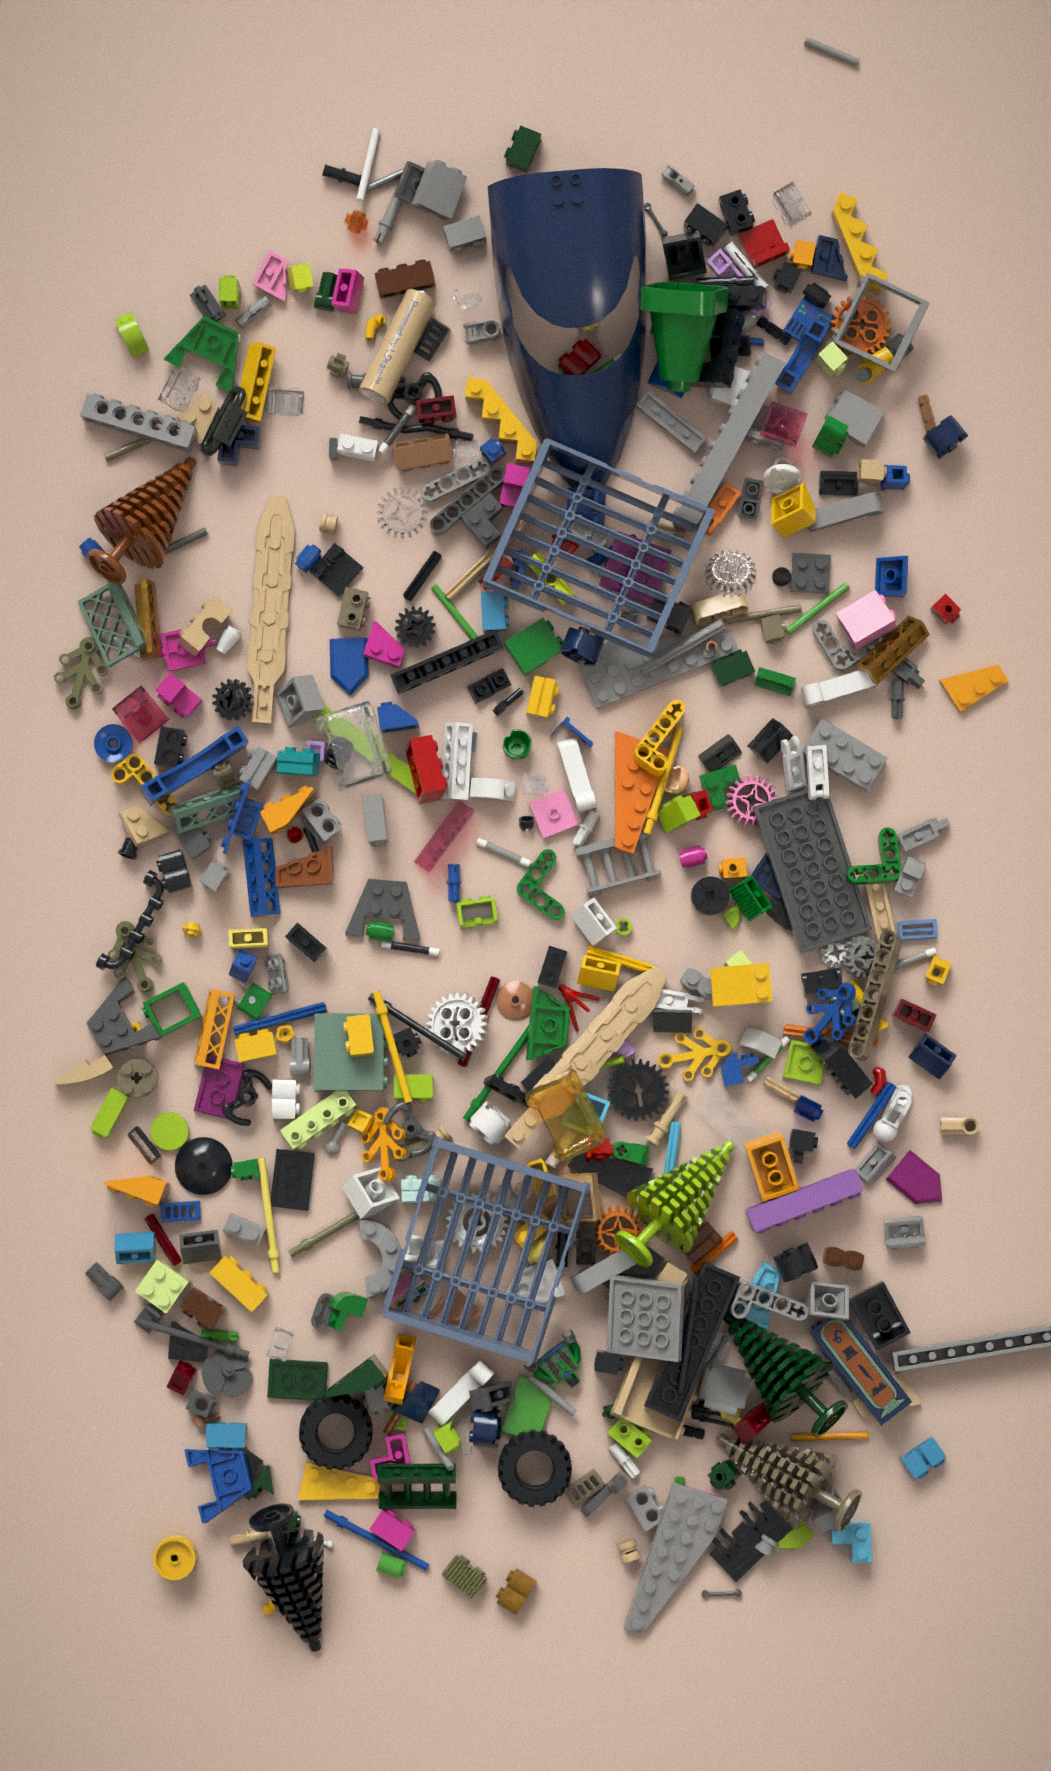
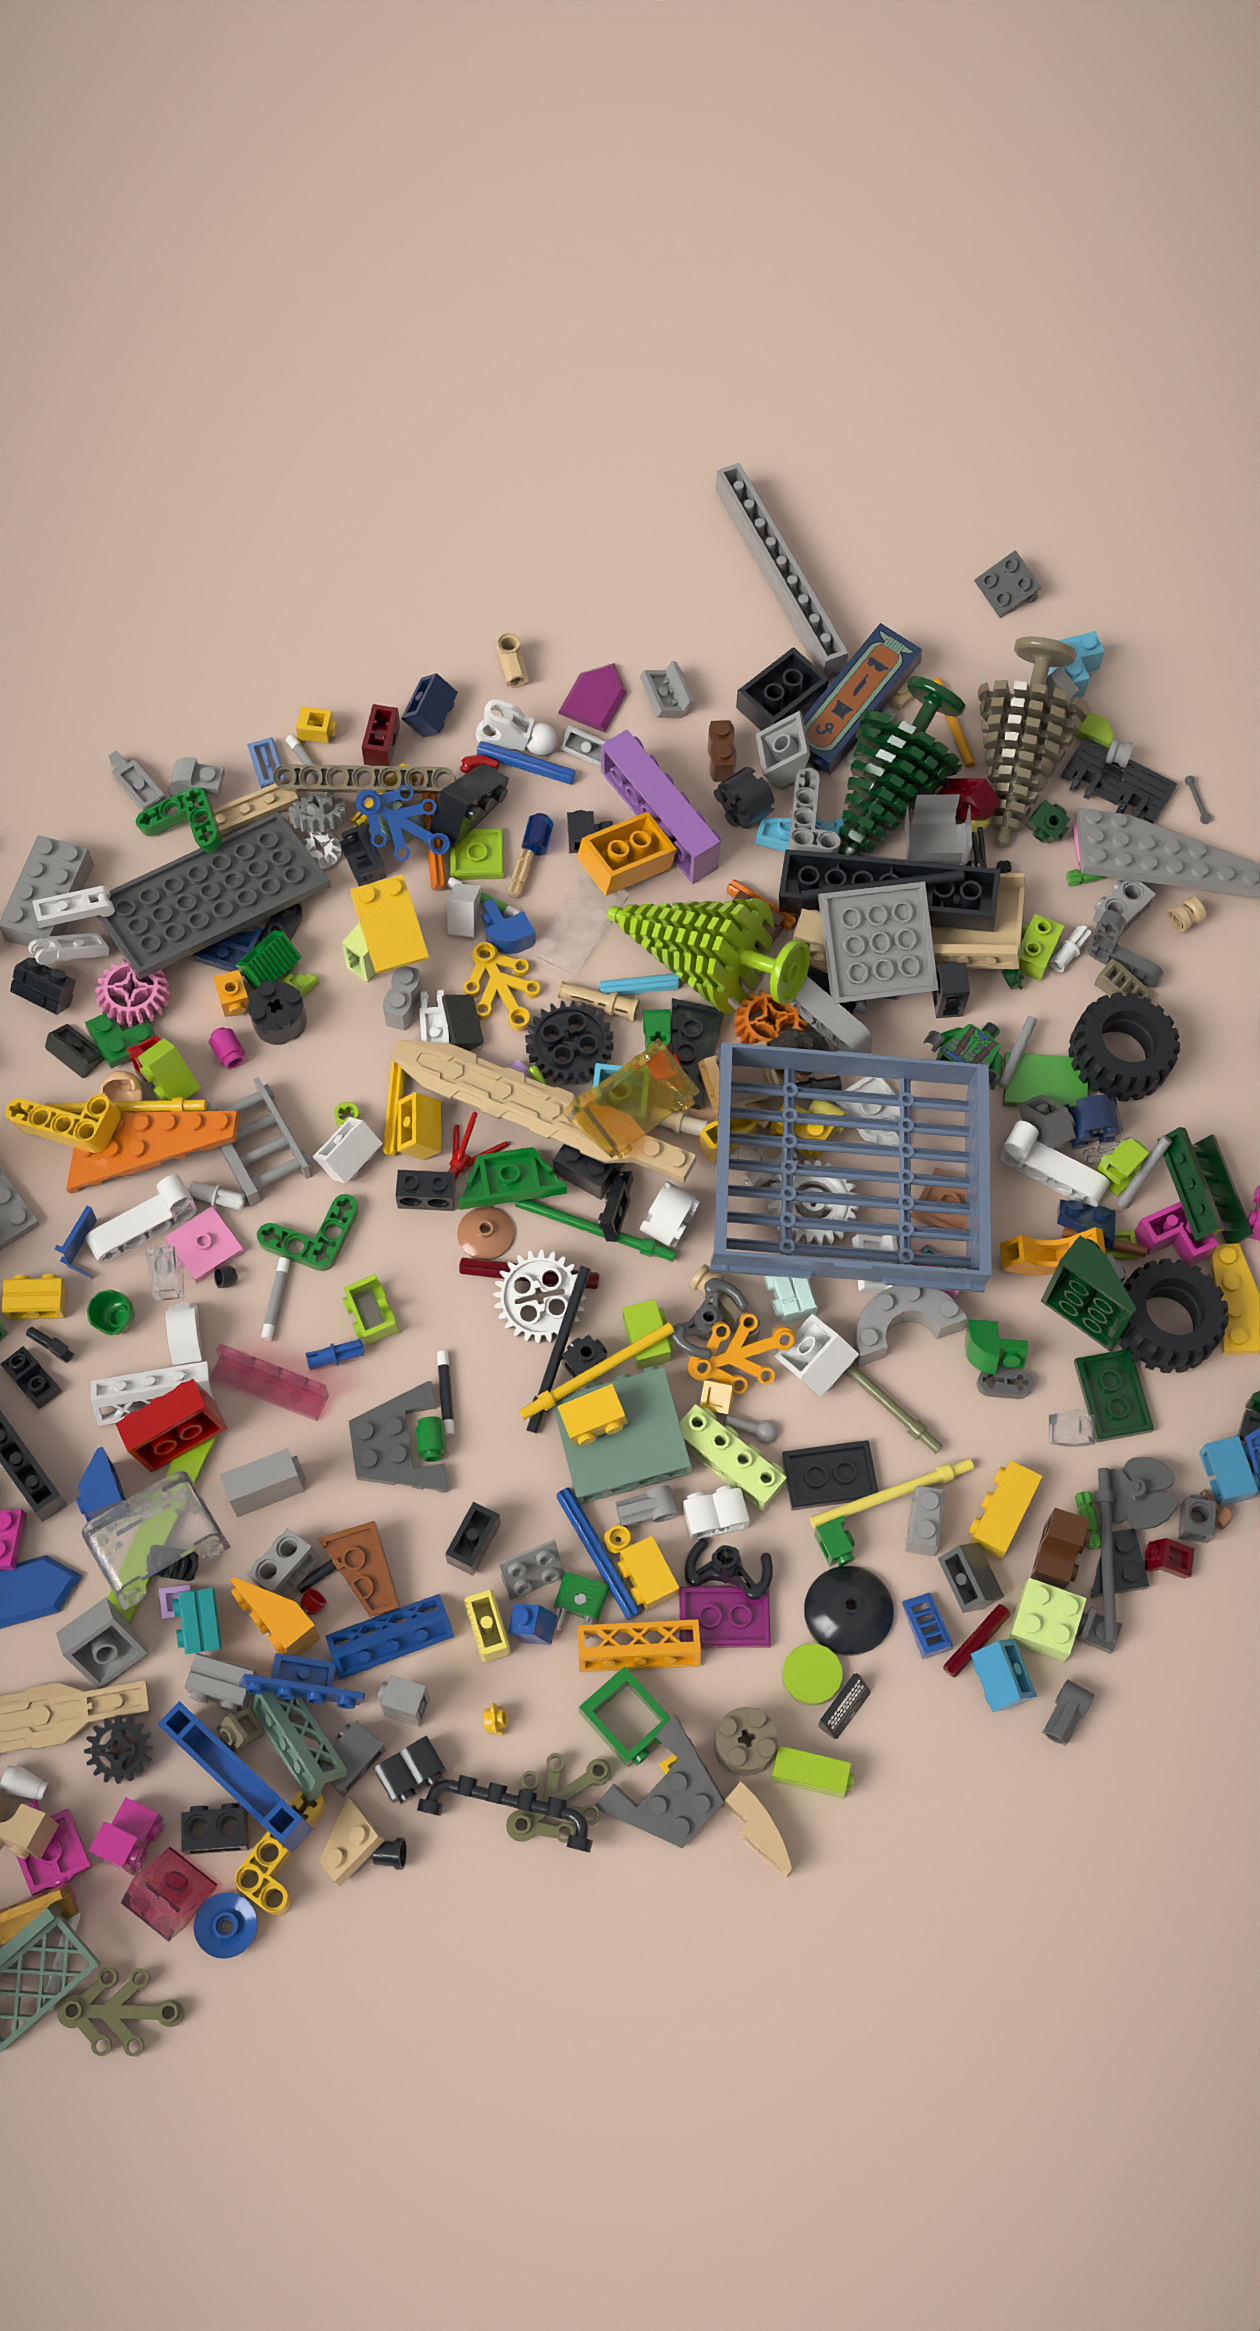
camera: 105 degrees left, 20 degrees down
(146, 1187) = (908, 1685): light orange slope -> none
(923, 1457) = (943, 613): dark azure piece -> none
(937, 1514) = (1008, 584): none -> dark grey hinge

